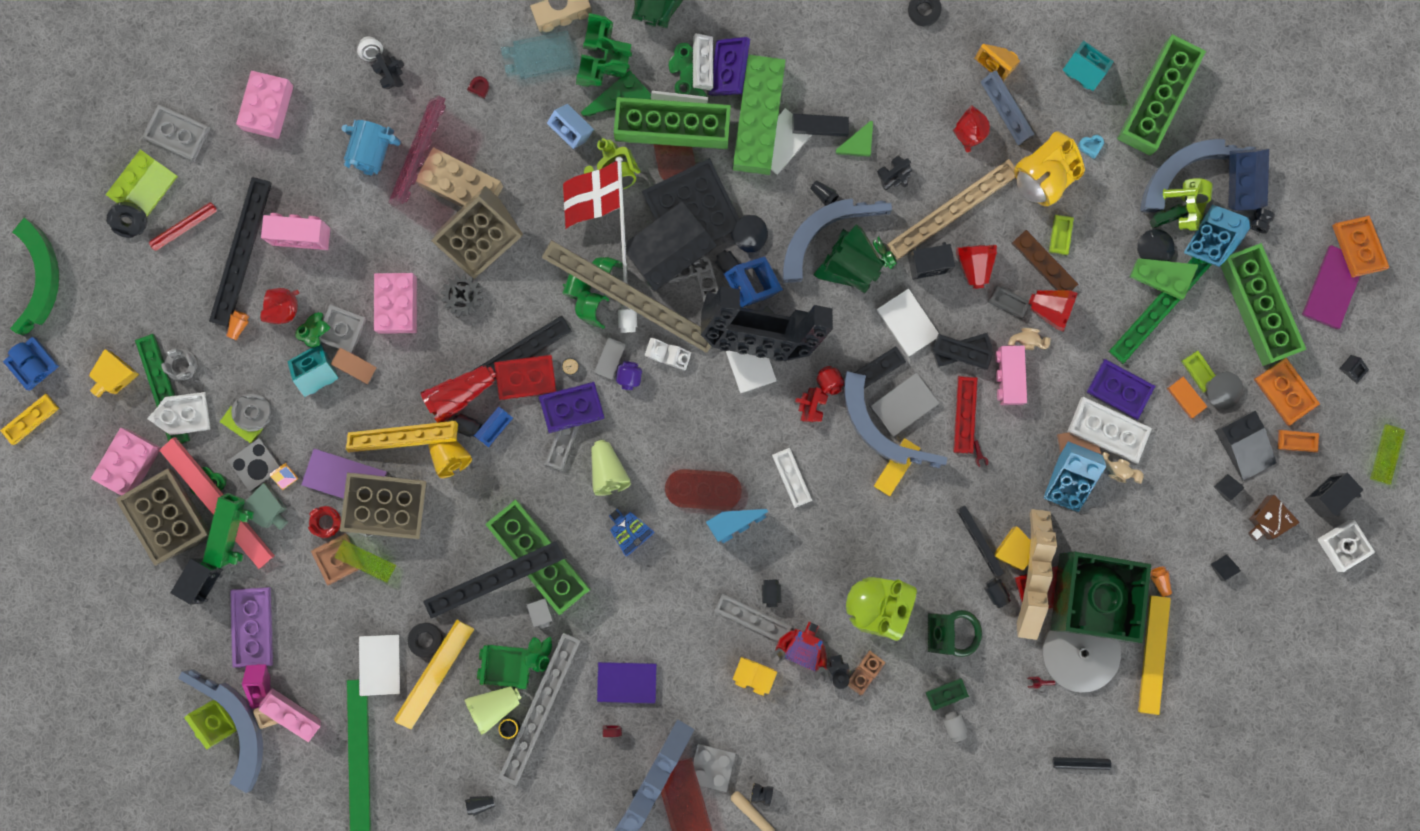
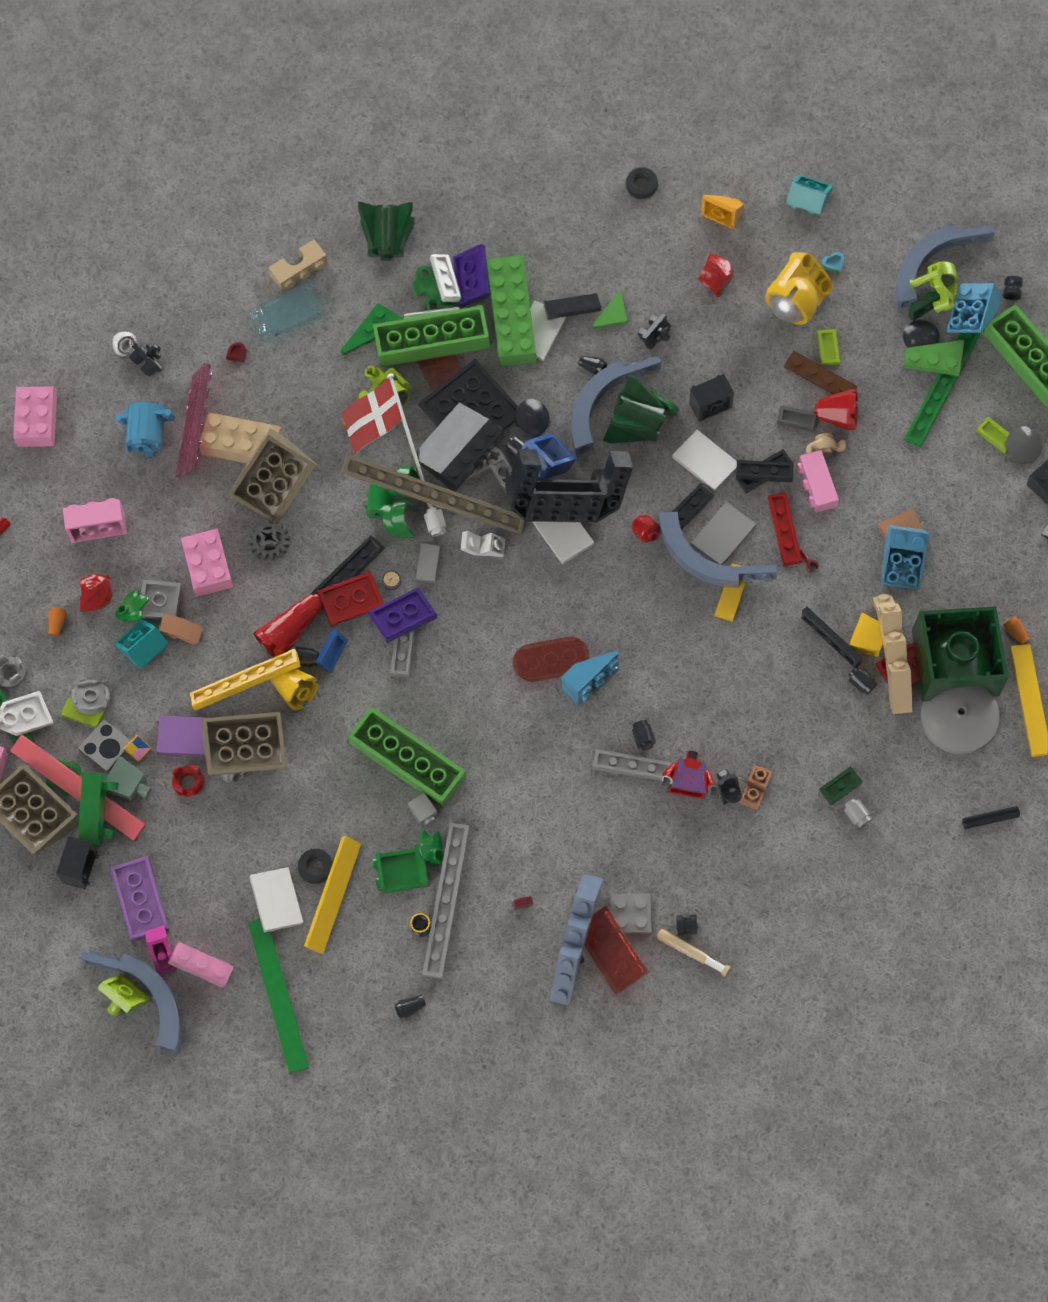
camera: 10 degrees left, 15 degrees down
(240, 251) = (43, 555): black plate -> none
(263, 720) = (175, 978): tan tile -> none
(329, 566) = (208, 813): nougat tile -> none
(365, 561) = (237, 806): clear neon green tile -> none
(492, 707) = (397, 909): yellowish green cone -> none
(495, 579) = (370, 784): black plate -> none
(570, 126) = (334, 363): light blue brick -> none
(607, 470) = (454, 662): yellowish green cone -> none
(615, 58) = (362, 289): green piece -> none
(626, 682) = (525, 855): dark purple tile -> none
(629, 375) = (450, 572): dark purple head -> none
(629, 531) = (490, 713): torso -> none
(754, 675) = (648, 815): yellow brick -> none
(792, 477) = (634, 627): white tile -> none
(809, 403) = (630, 555): red hips -> none
(881, 606) = (751, 712): lime piece -> none
(942, 633) = (819, 728): dark green tile -> none
(952, 210) = (719, 350): tan tile -> none
(977, 263) = (755, 389): red cone -> none
(1007, 108) = (744, 248): sand blue plate -> none
(1037, 682) = (925, 753): dark red hand -> none
(1109, 430) = (925, 507): white tile -> none
(1120, 389) = (925, 469): dark purple tile -> none
(1121, 471) = (948, 540): tan piece -> none
(1161, 95) = (884, 202): bright green brick -> none
(1187, 397) = (991, 461): orange tile -> none
(1248, 179) = (988, 253): dark blue slope -> none

